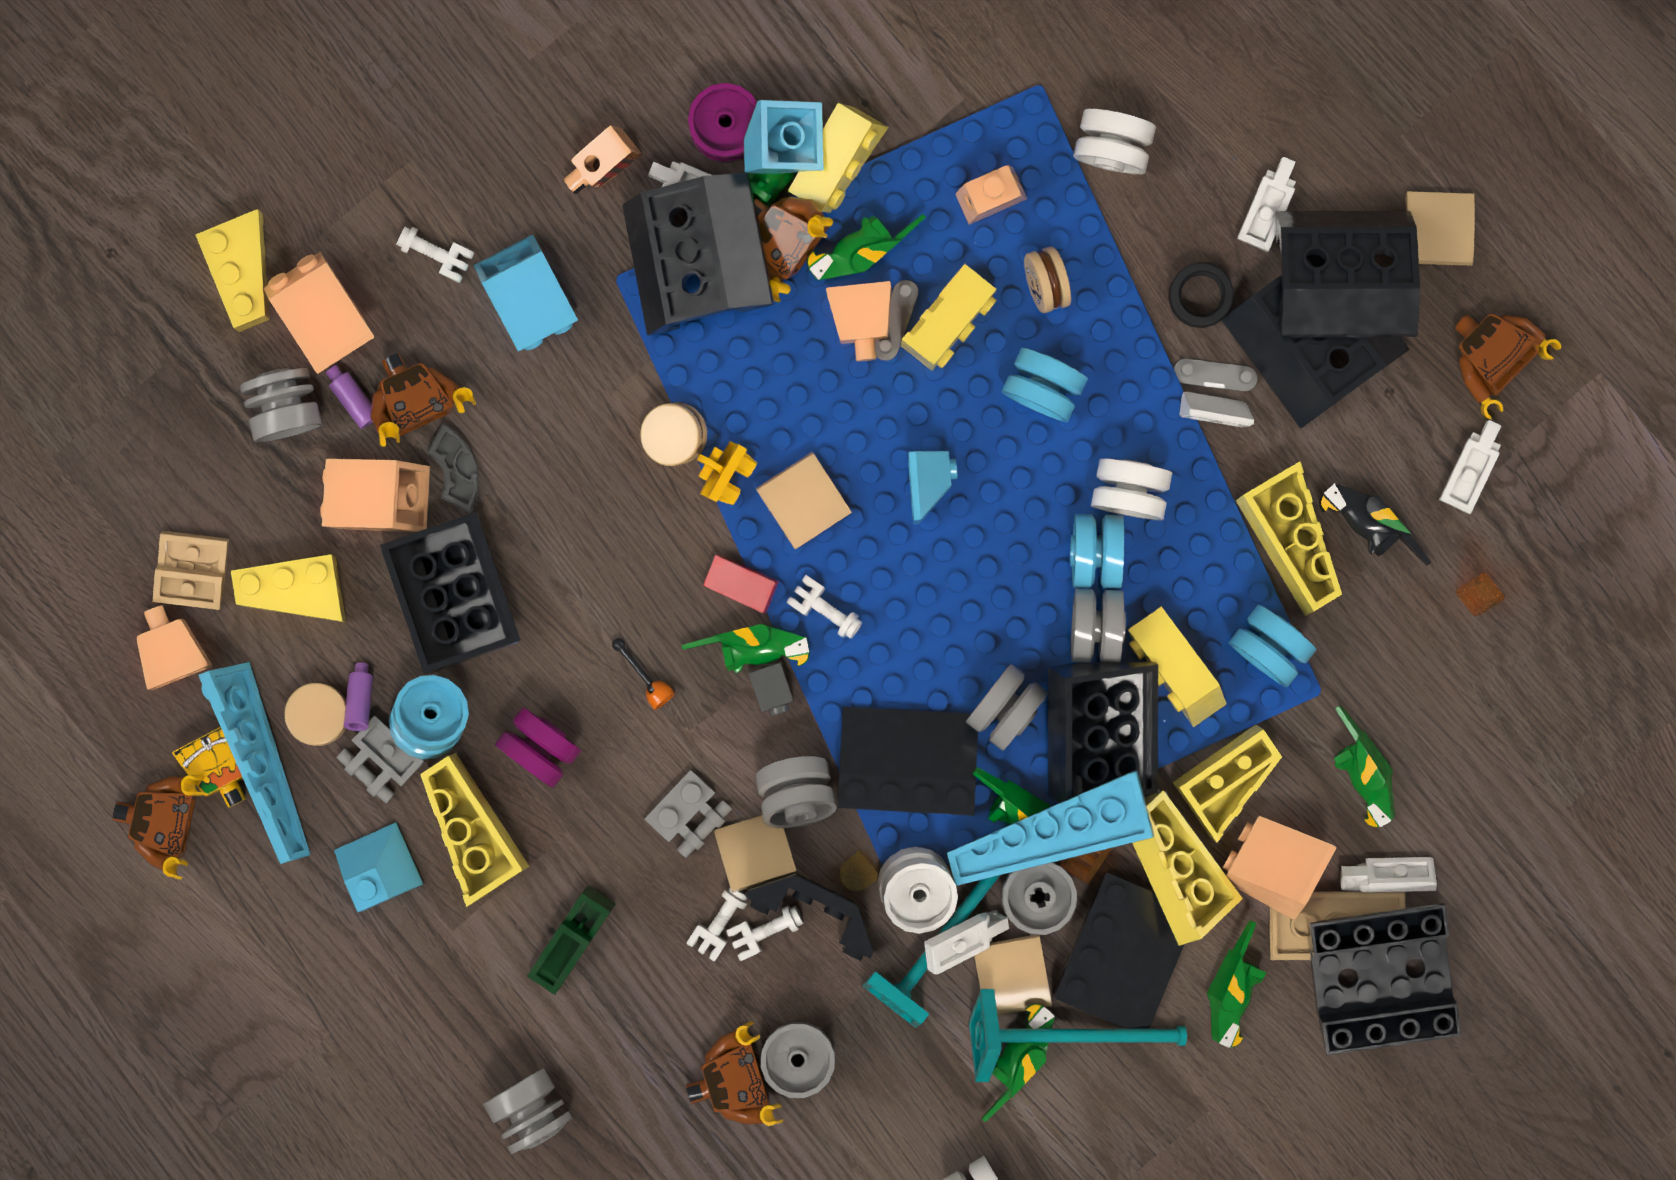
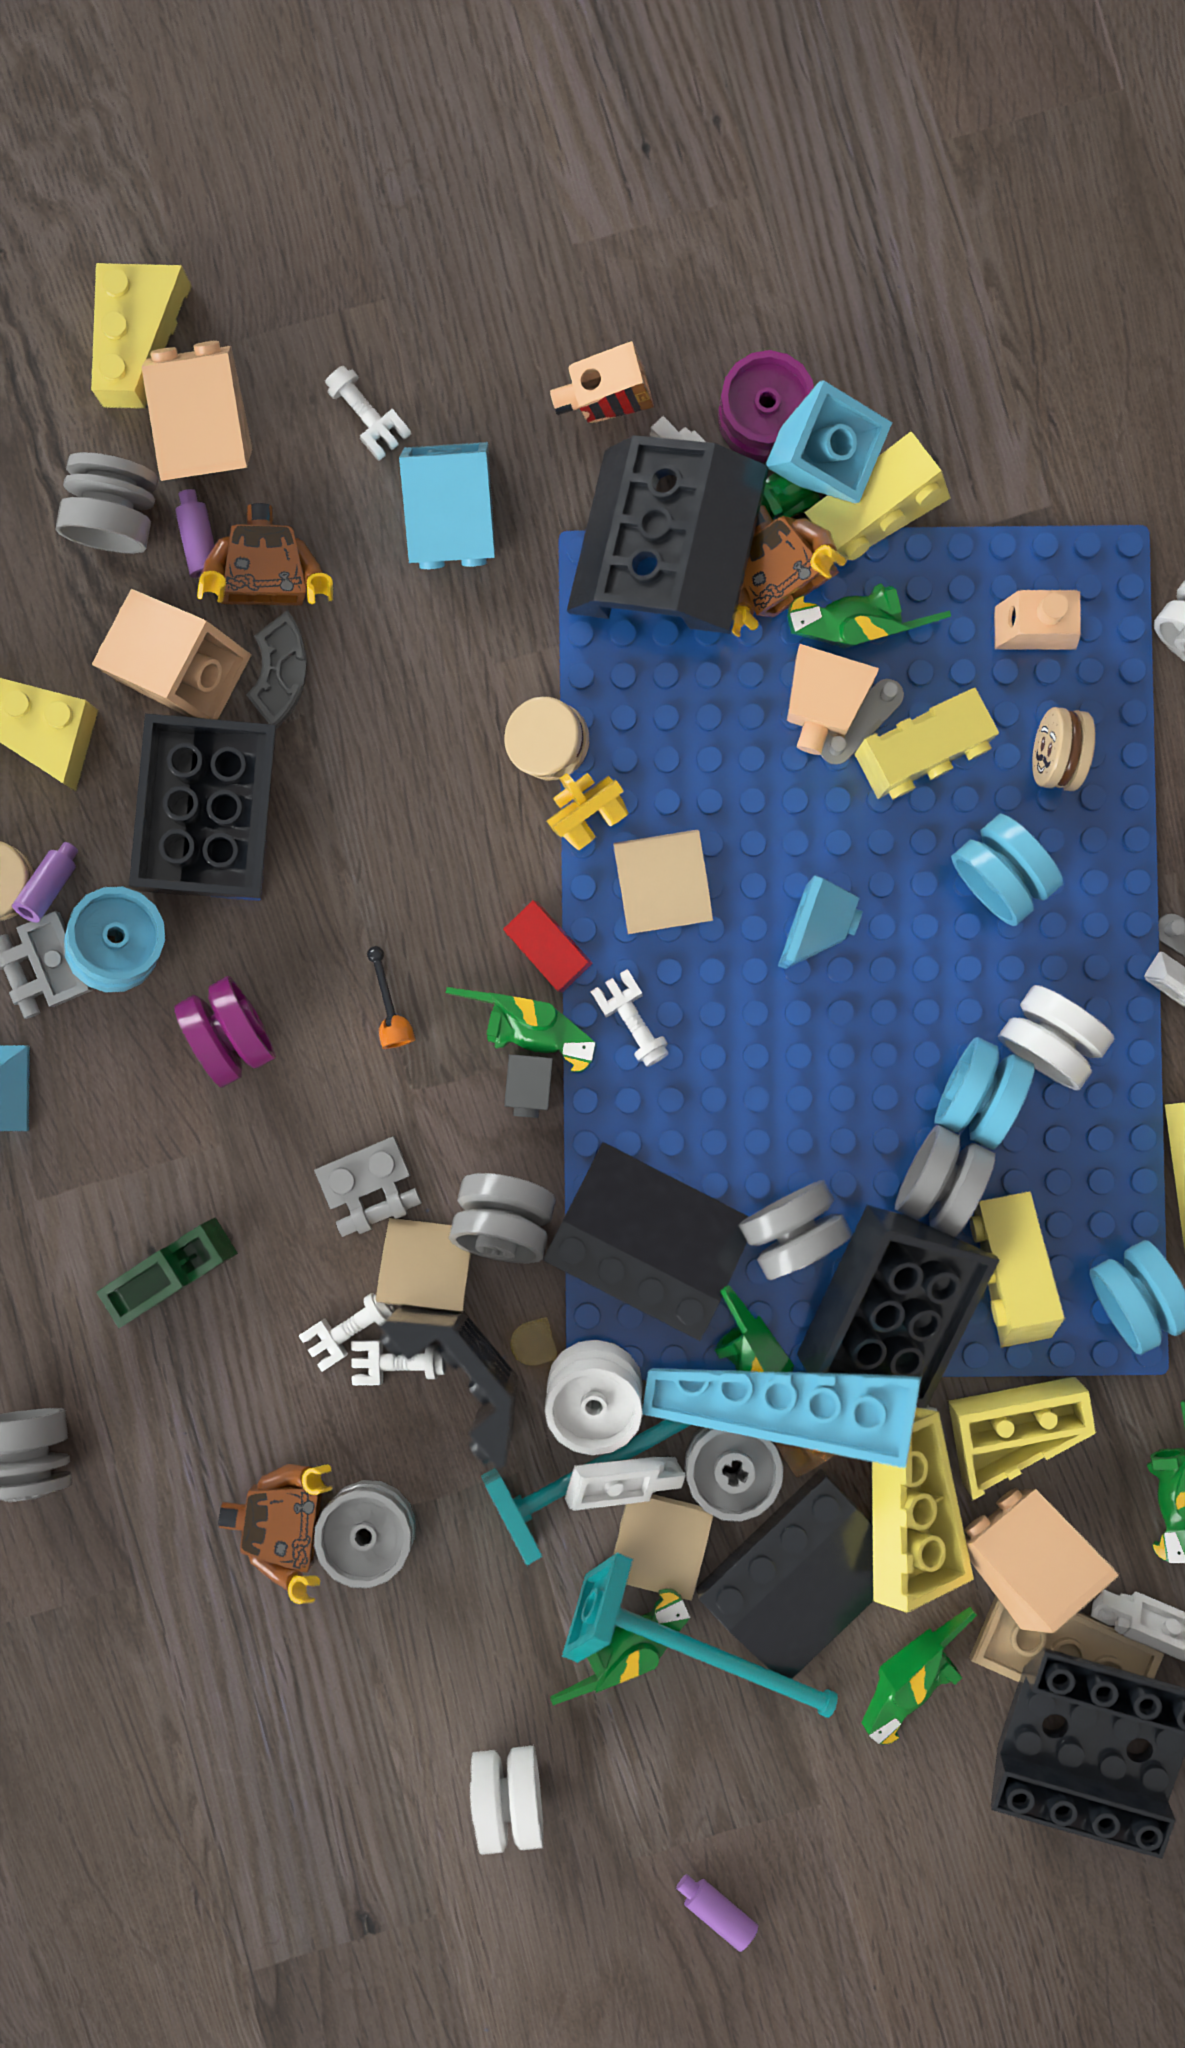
camera: 25 degrees right, 0 degrees up
(471, 830) = (106, 1092): light yellow wedge -> none

